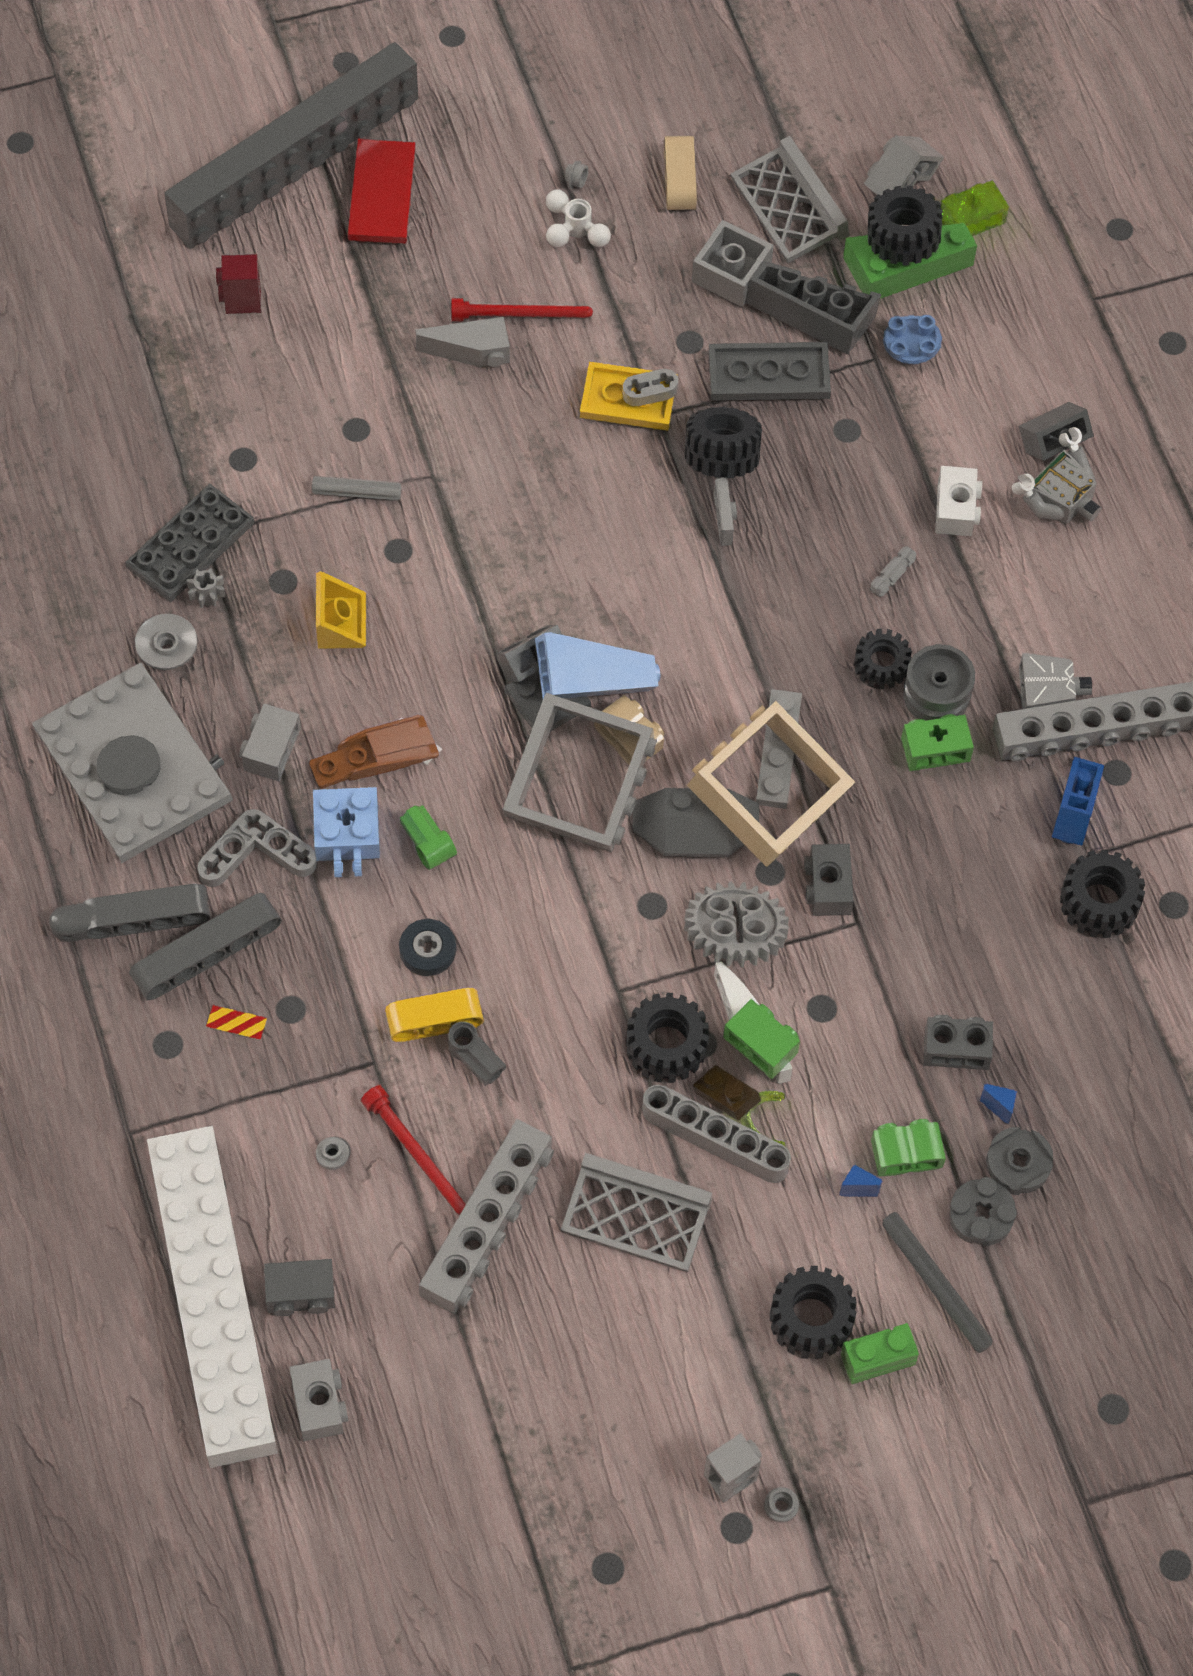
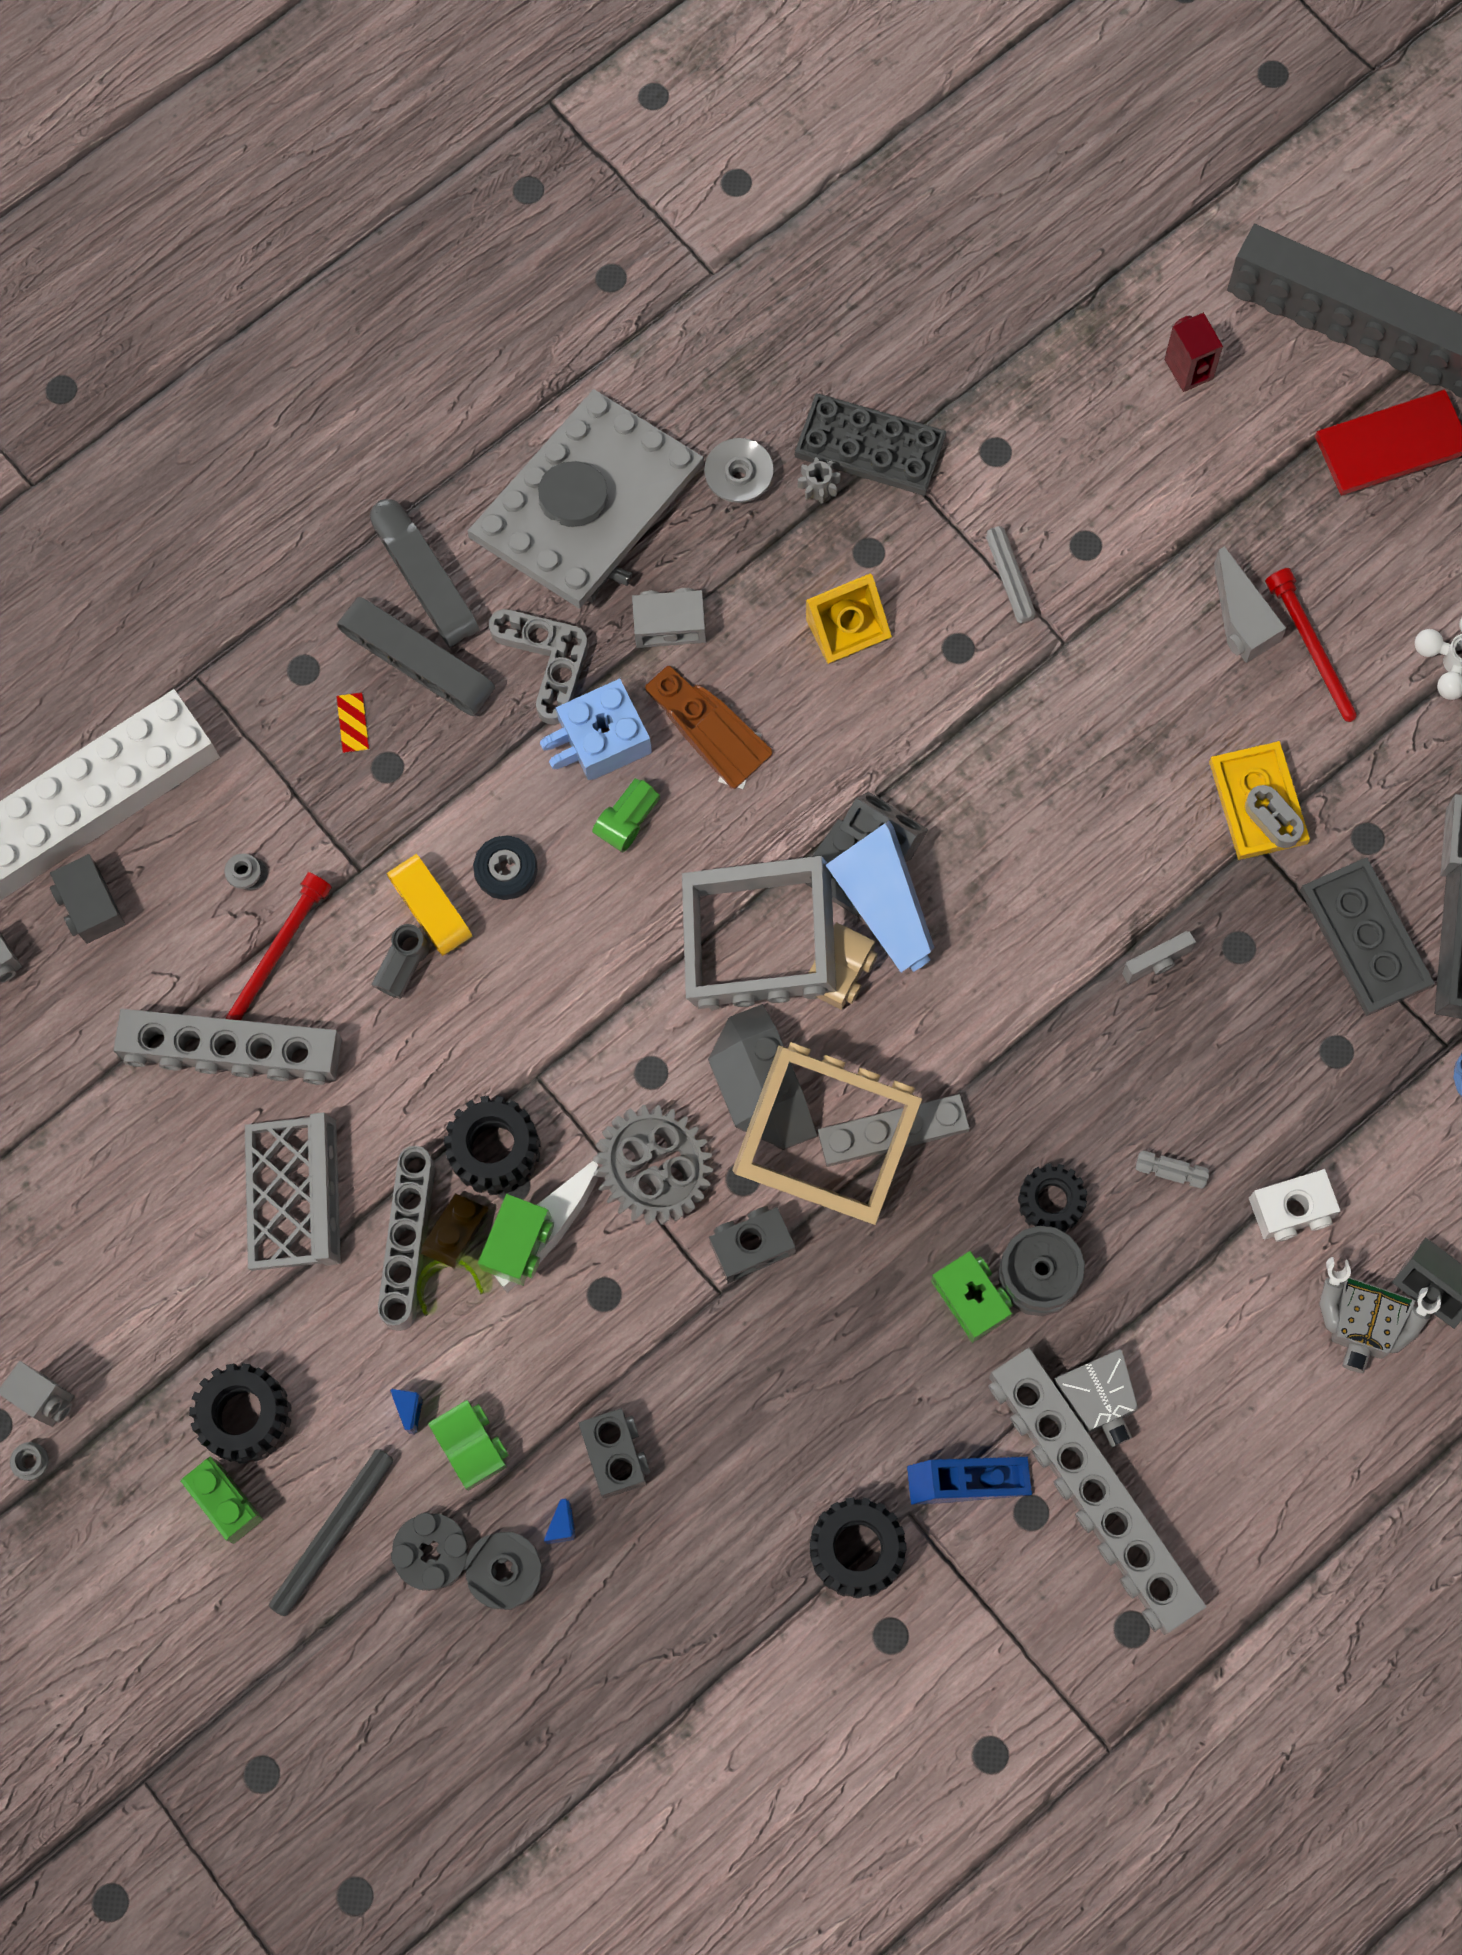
camera: 75 degrees right, 10 degrees up
(723, 442) = (1222, 934): black tyre -> none

